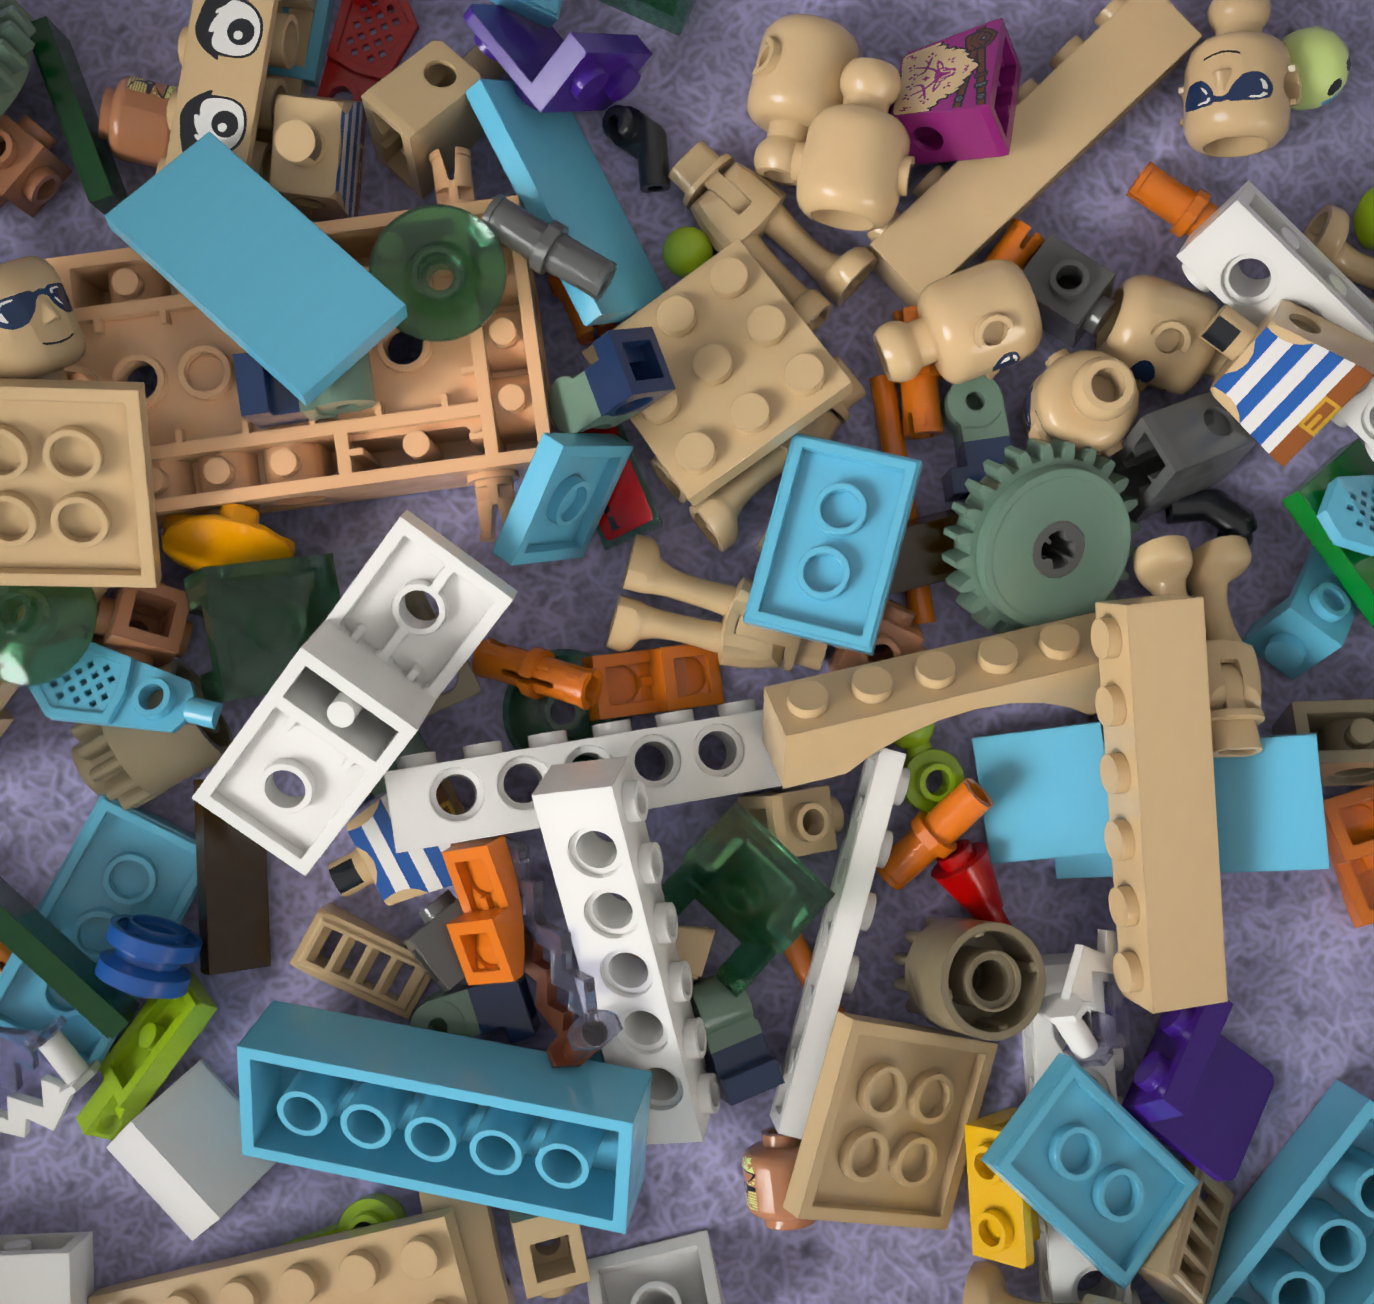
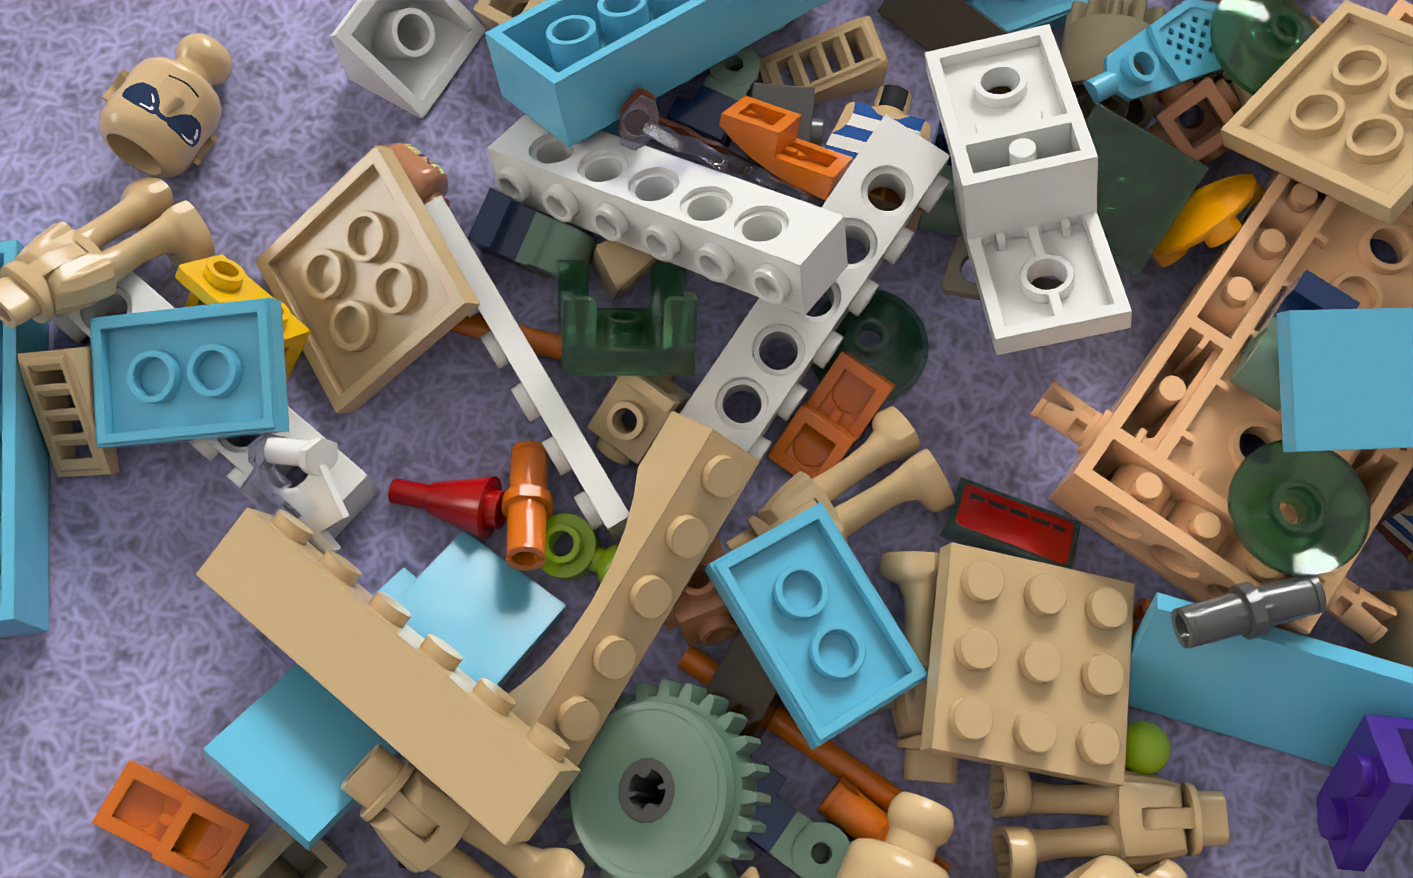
camera: 135 degrees right, 15 degrees down
(537, 673) = (915, 341): orange pin -> none
(562, 497) = (1035, 463): medium azure tile -> none
(614, 388) = (1092, 568): dark blue leg -> none
(642, 140) = (1265, 801): black arm -> none
(972, 976) = (402, 424): dark tan gear -> none
(1200, 1090) = (150, 514): dark purple bracket -> none

